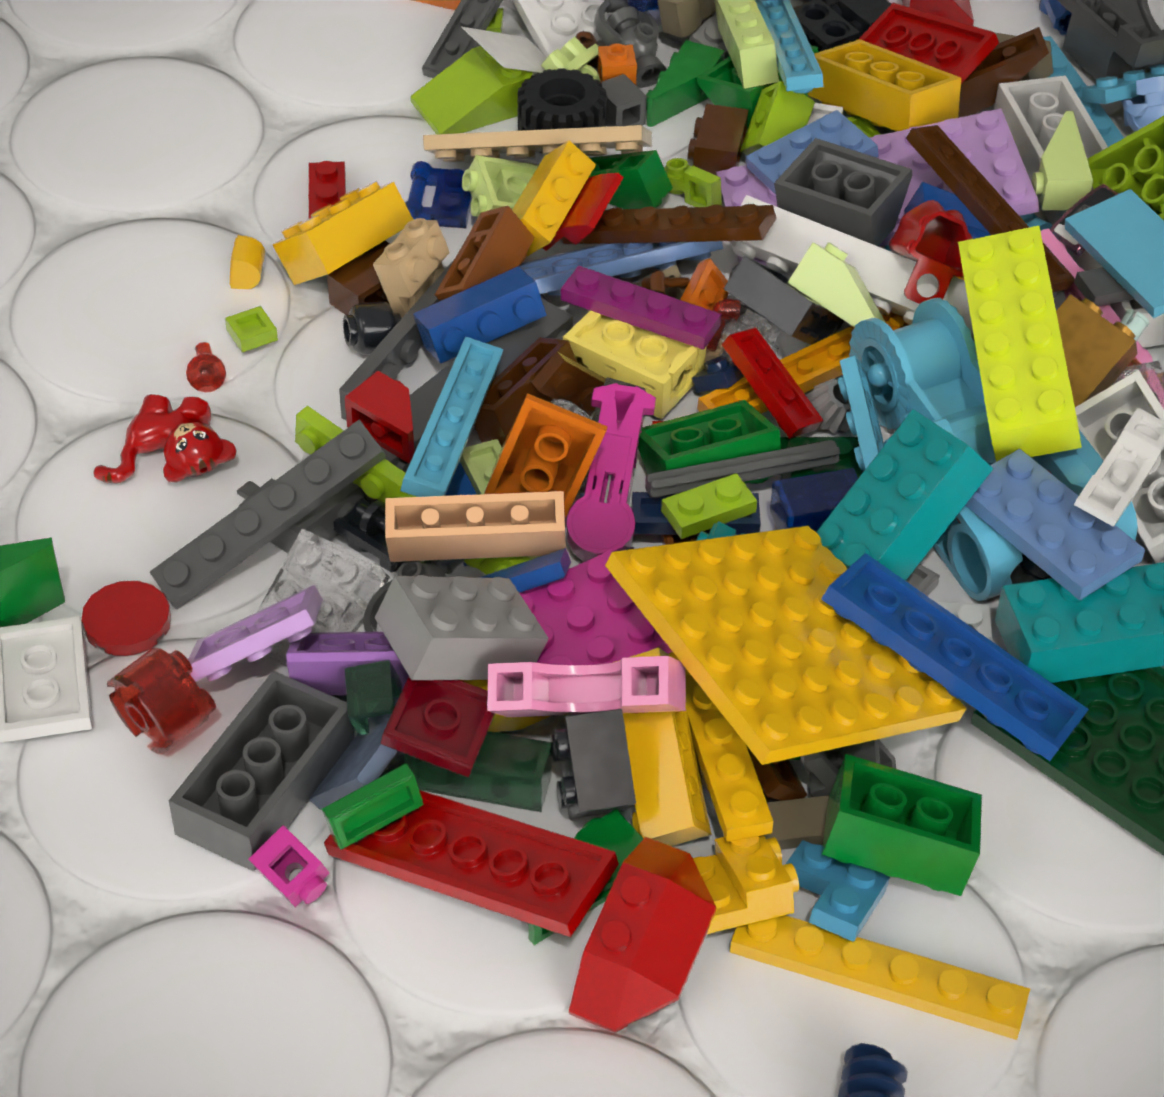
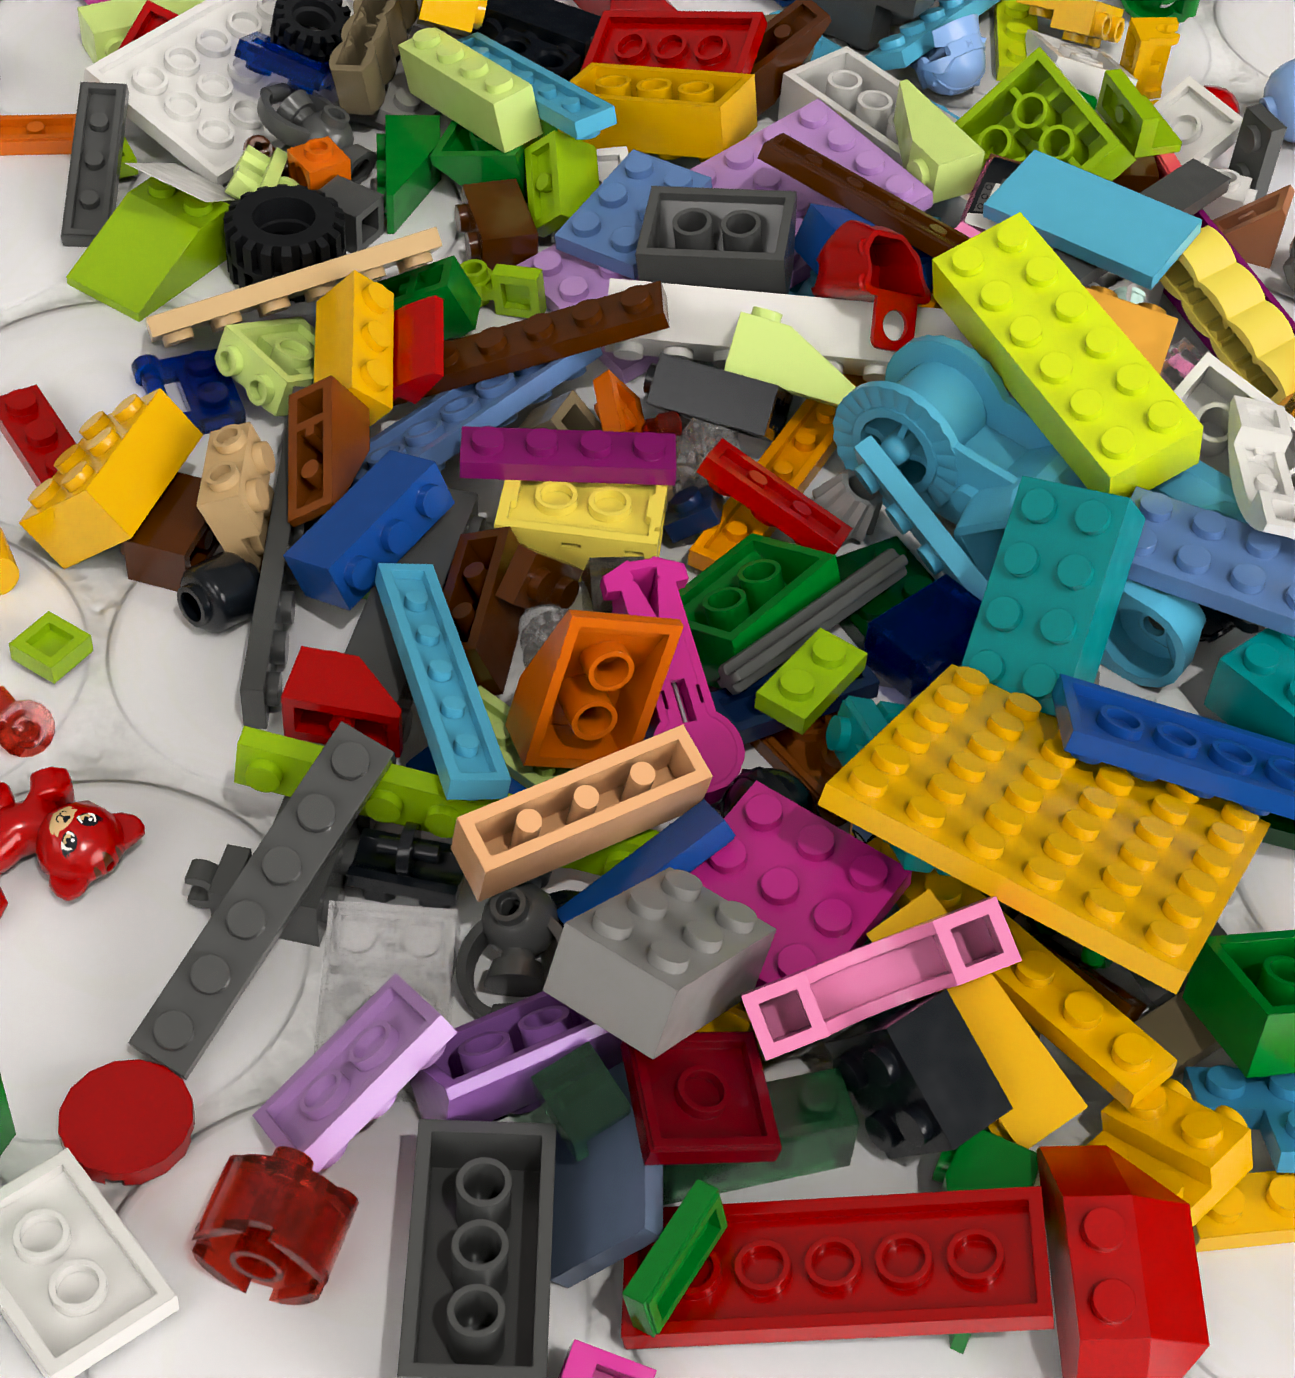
camera: 30 degrees left, 0 degrees up
(658, 282) = (573, 417): reddish brown hand -> none

